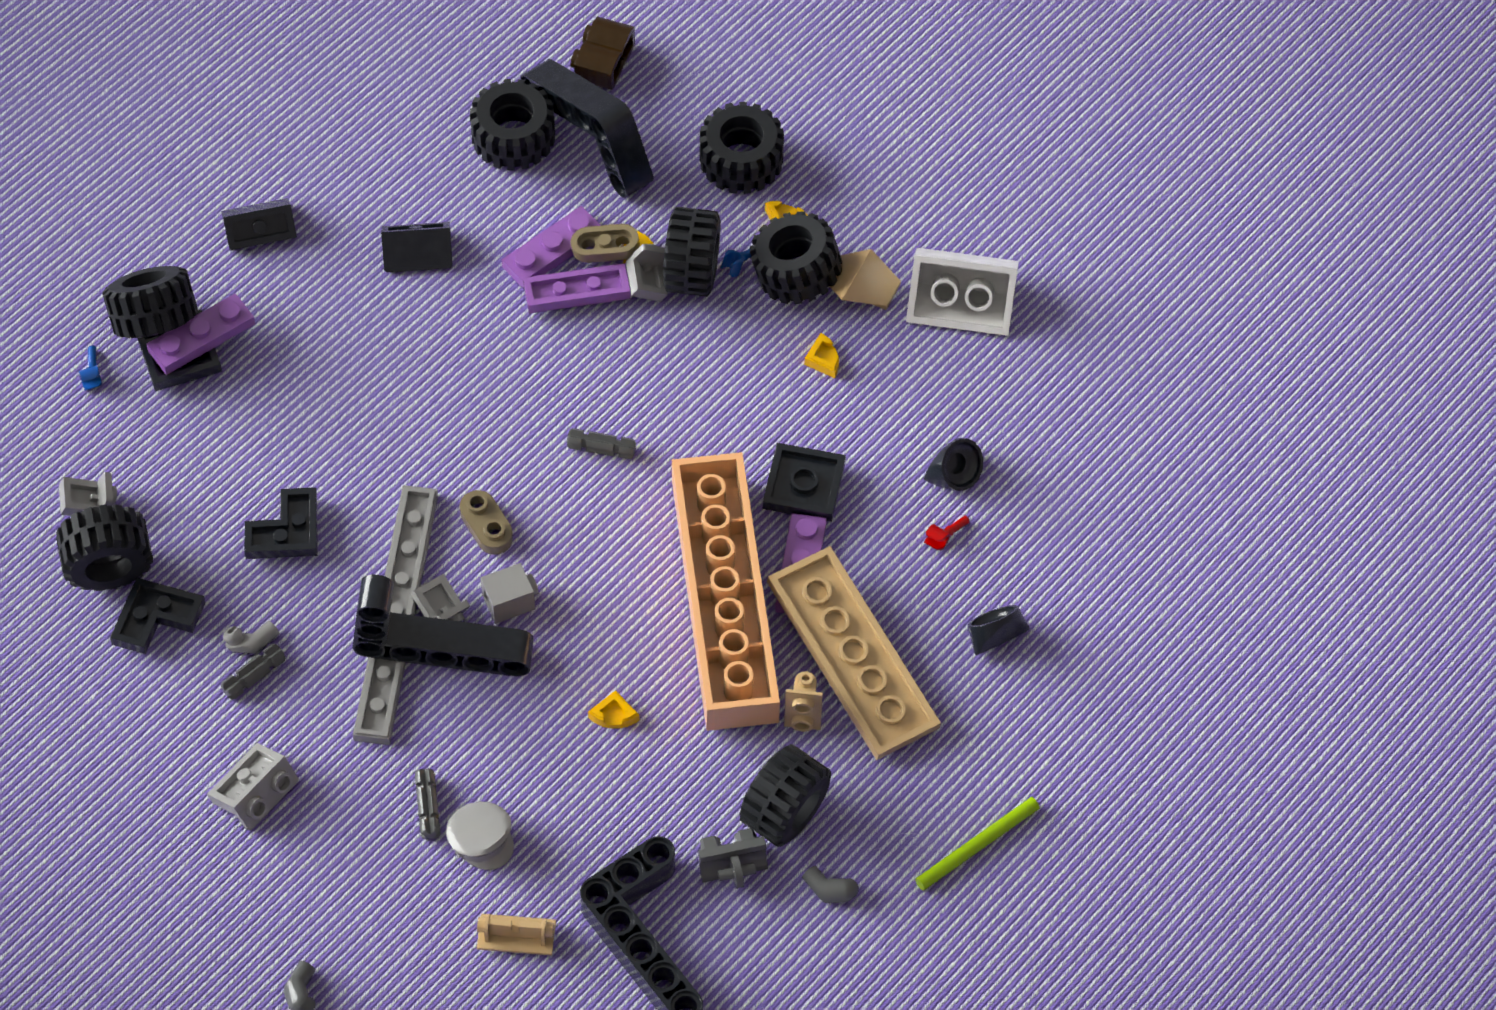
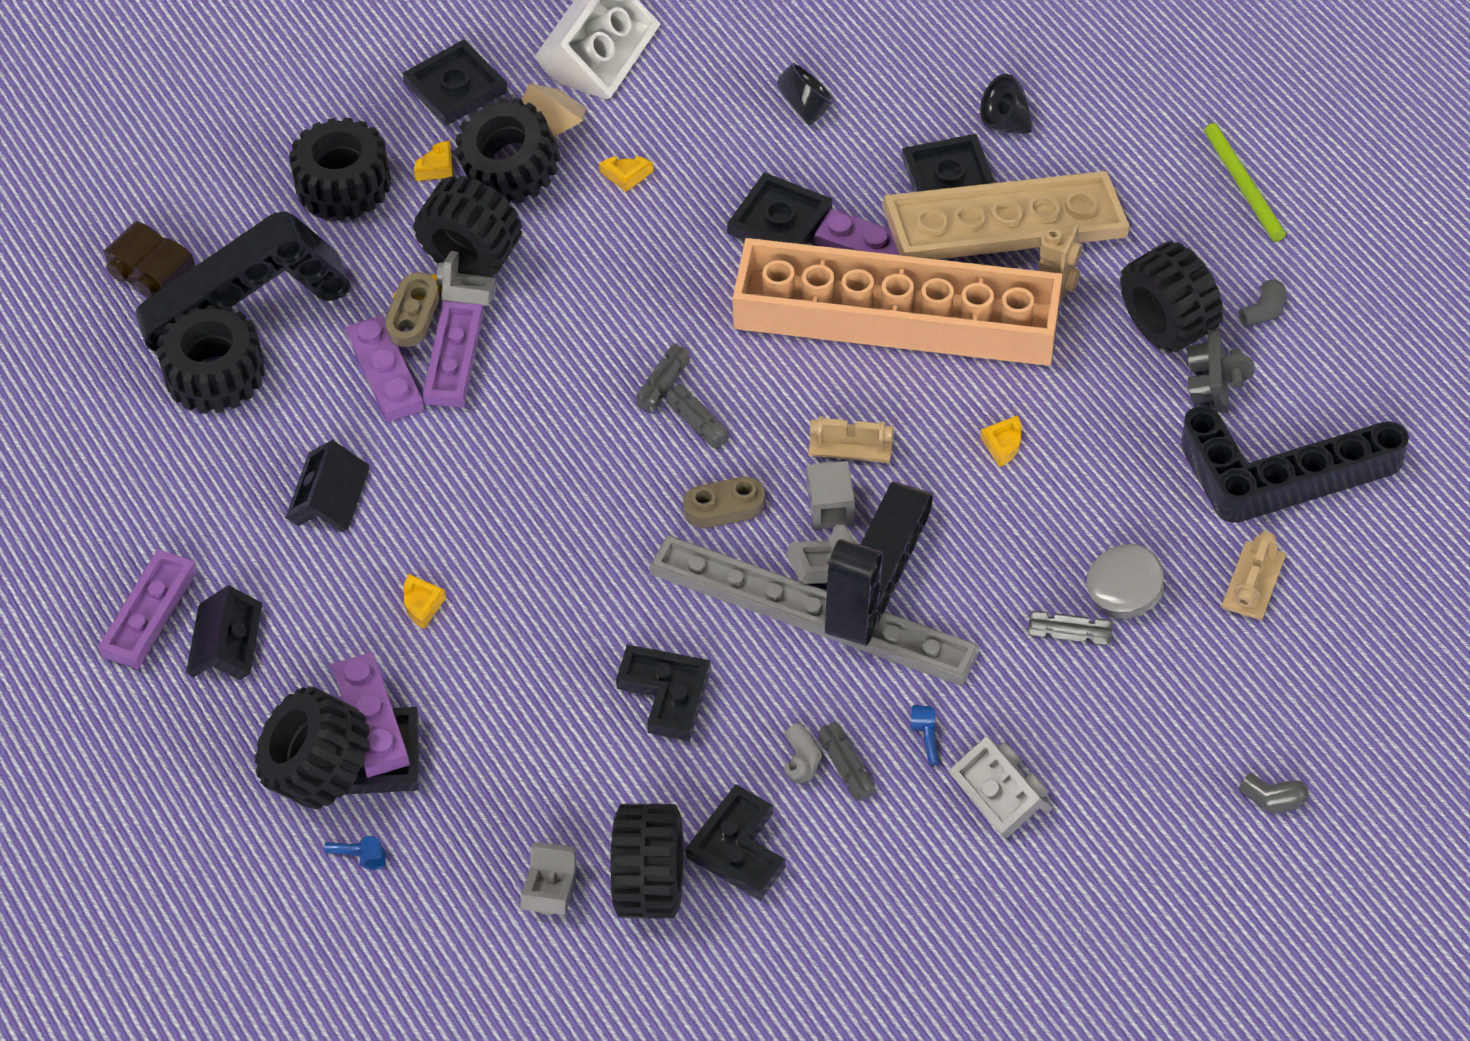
camera: 70 degrees left, 5 degrees down
(268, 165) = (147, 609): none -> medium lavender plate
(306, 719) = (924, 720): none -> blue hand
(330, 341) = (421, 600): none -> yellow tile
(568, 479) = (697, 416): none -> dark grey axle
(575, 595) = (853, 442): none -> tan hinge
(875, 201) = (455, 82): none -> black plate
(902, 598) = (947, 164): none -> black plate
(938, 537) = (880, 128): red hand -> none

